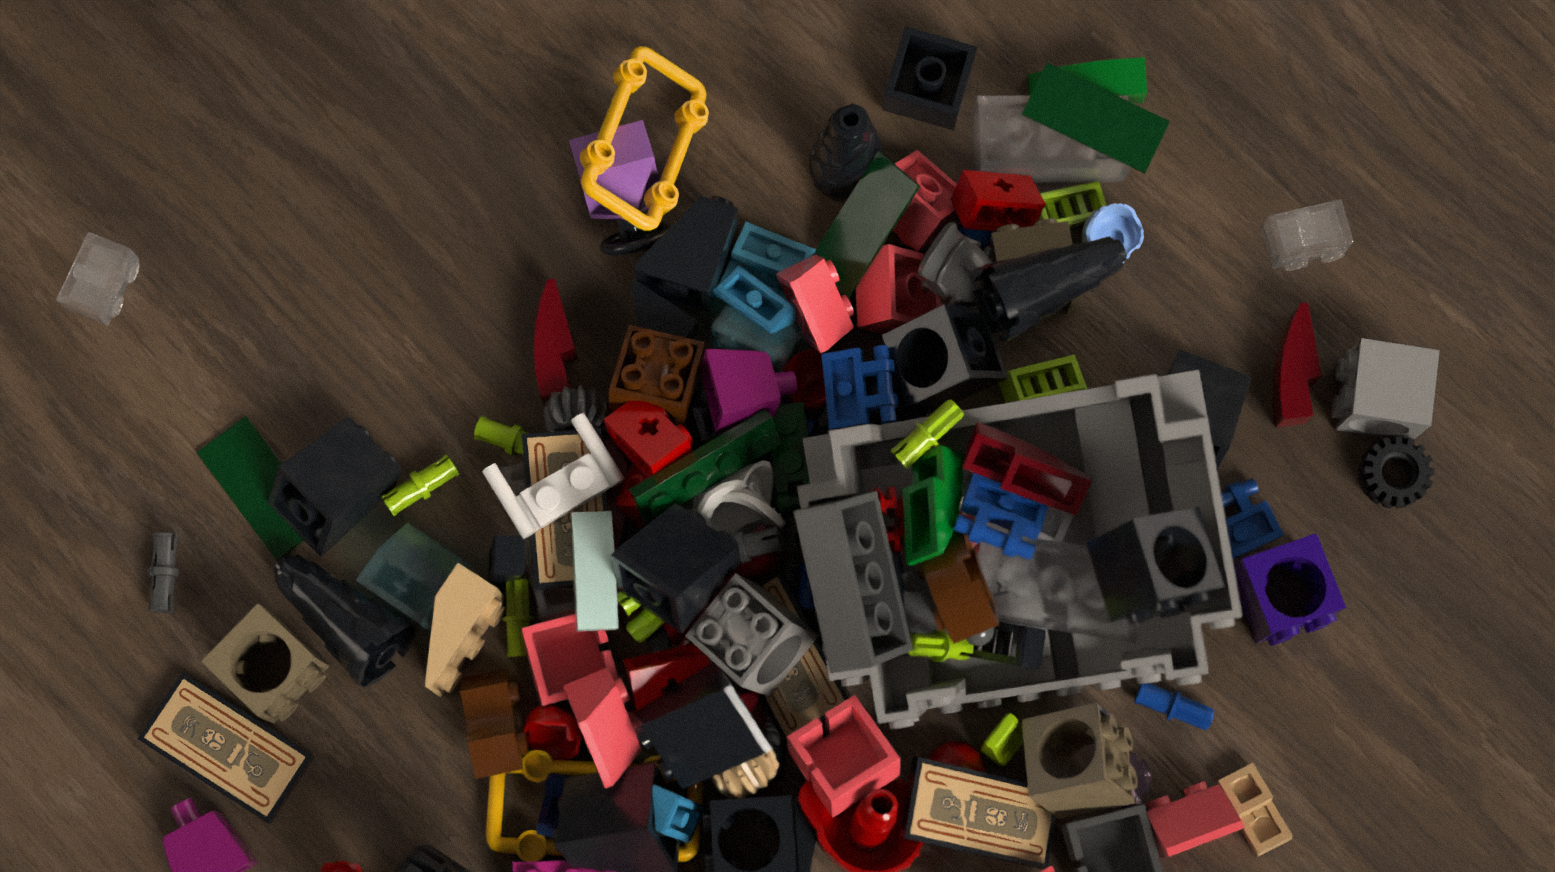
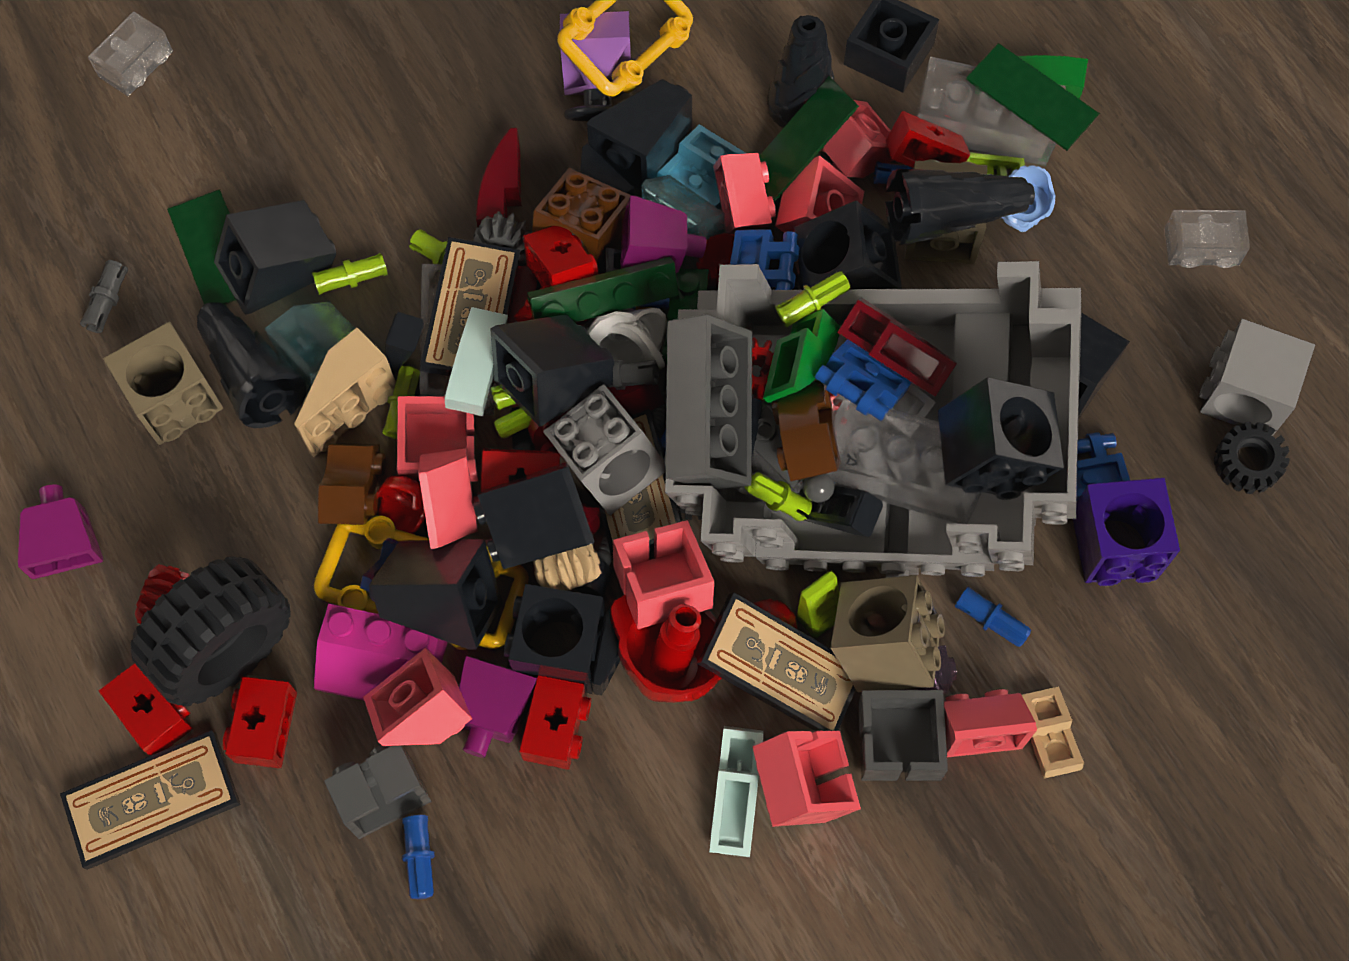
camera: 15 degrees right, 10 degrees down
(226, 748) = (109, 454): tile -> none
(561, 490) = (469, 287): white plate -> none
(675, 814) = (490, 592): dark azure slope -> none
(756, 301) = (690, 179): dark azure slope -> none
(951, 264) = (867, 178): dark grey helmet -> none
(1295, 370) = (1173, 350): dark red slope -> none

